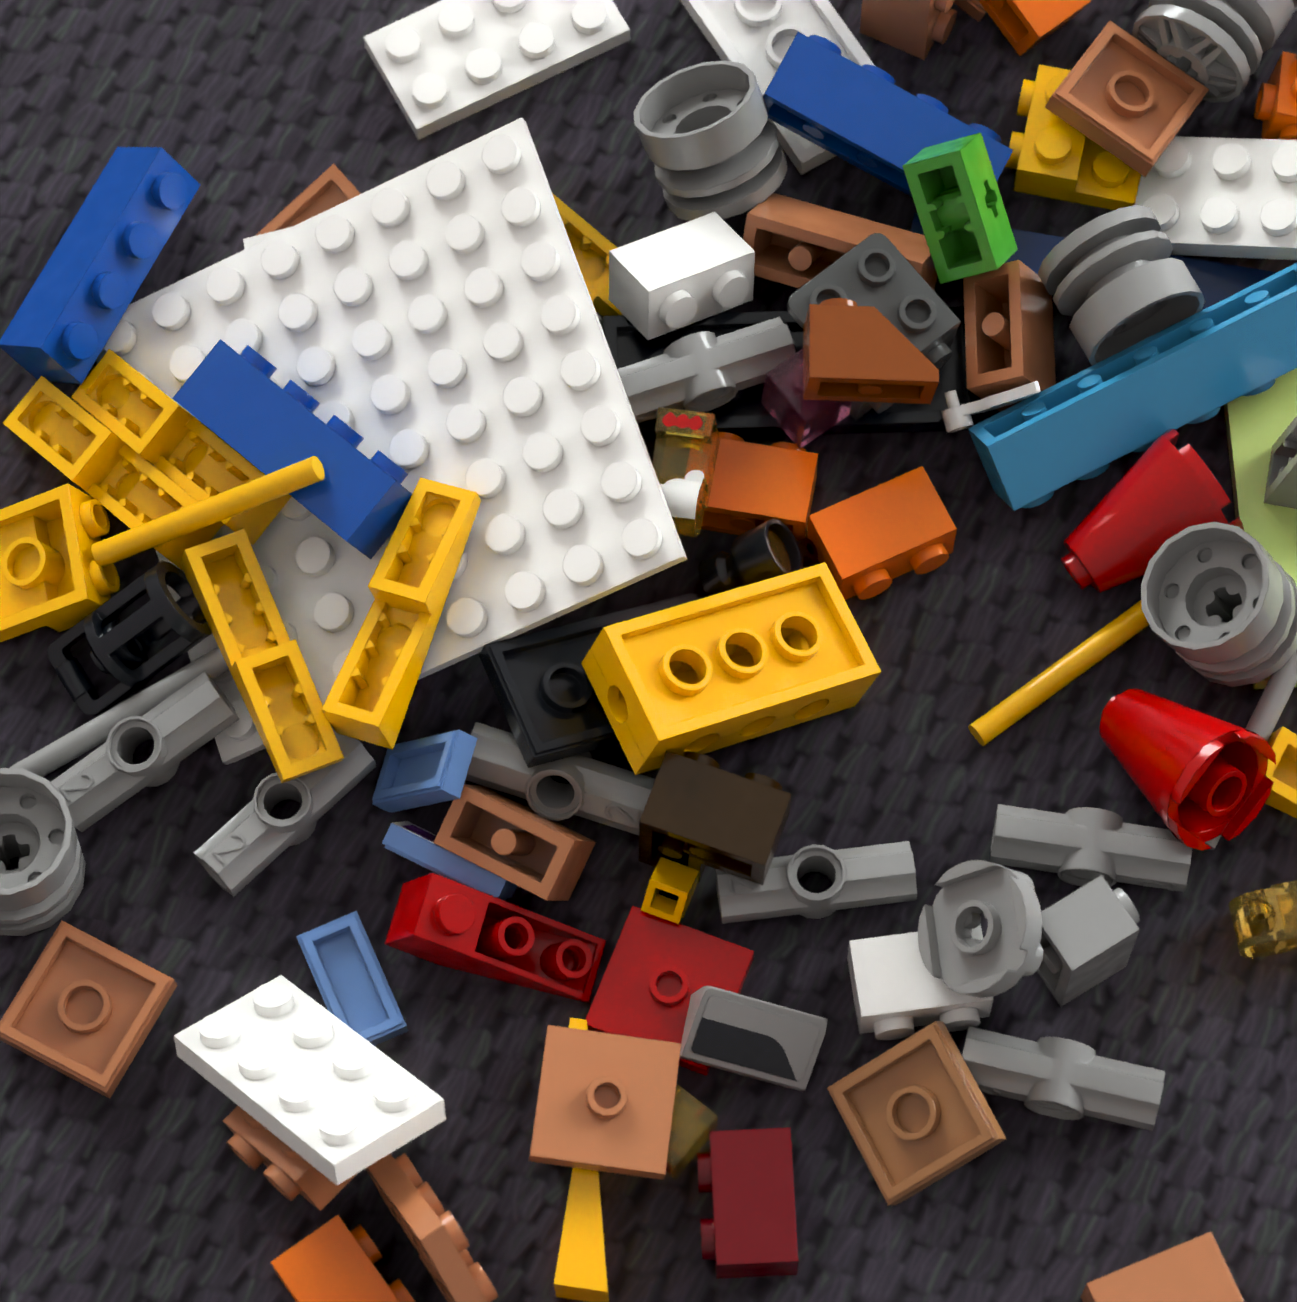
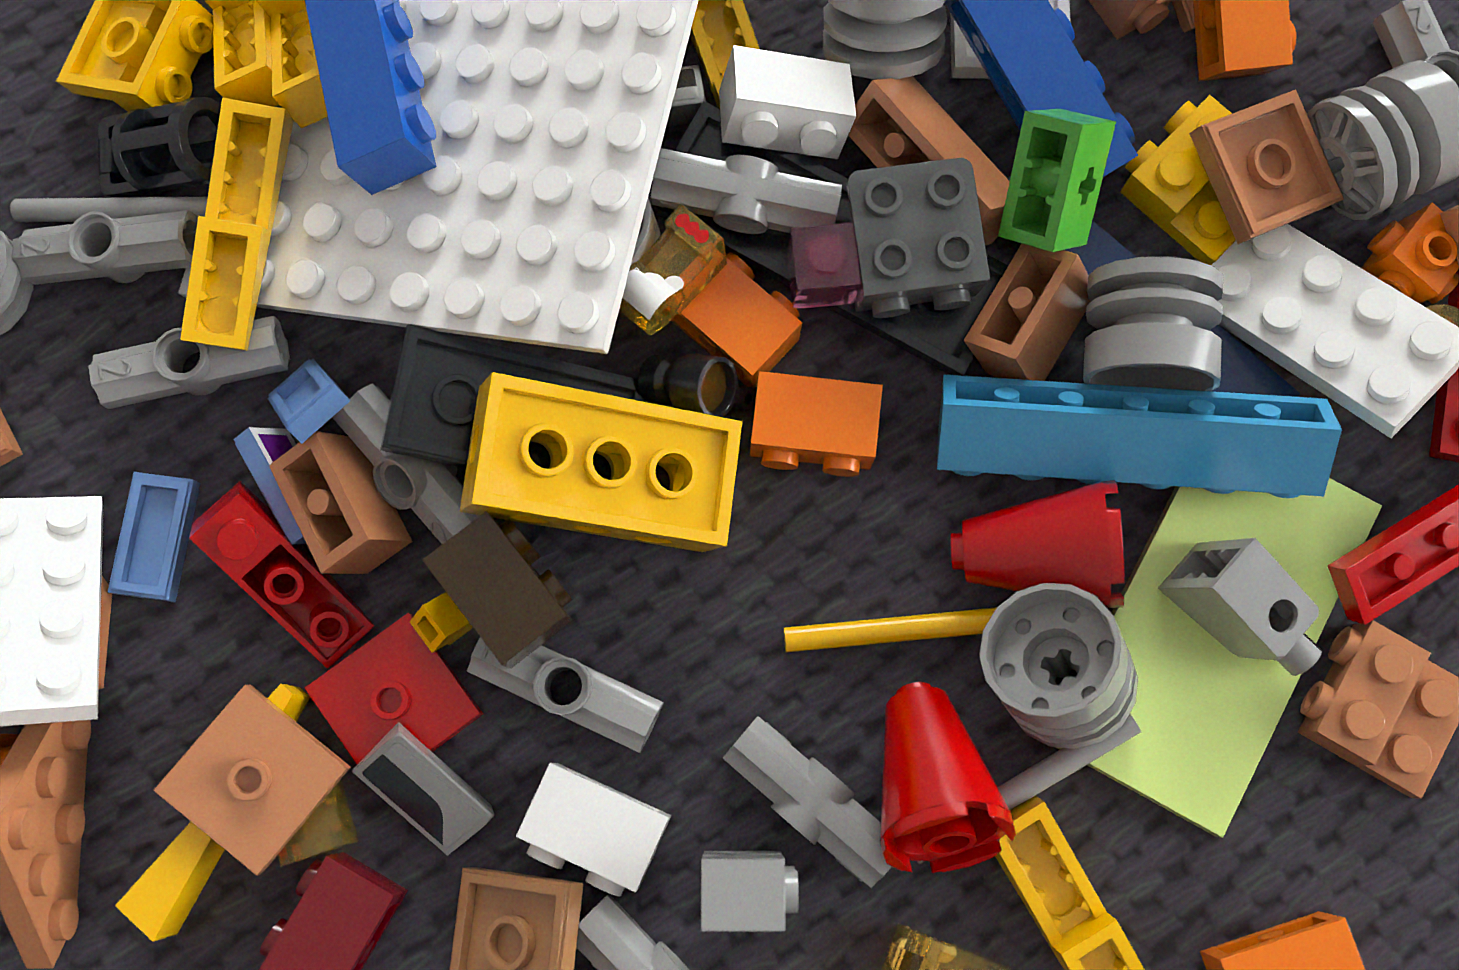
camera: 30 degrees right, 10 degrees up
(208, 511) = (262, 77): yellow bar -> none
(409, 598) = (377, 240): yellow slope -> none
(862, 357) = (873, 261): dark orange slope -> none
(959, 416) = (944, 360): white piece -> none
(1012, 933) = (681, 845): light grey plate -> none

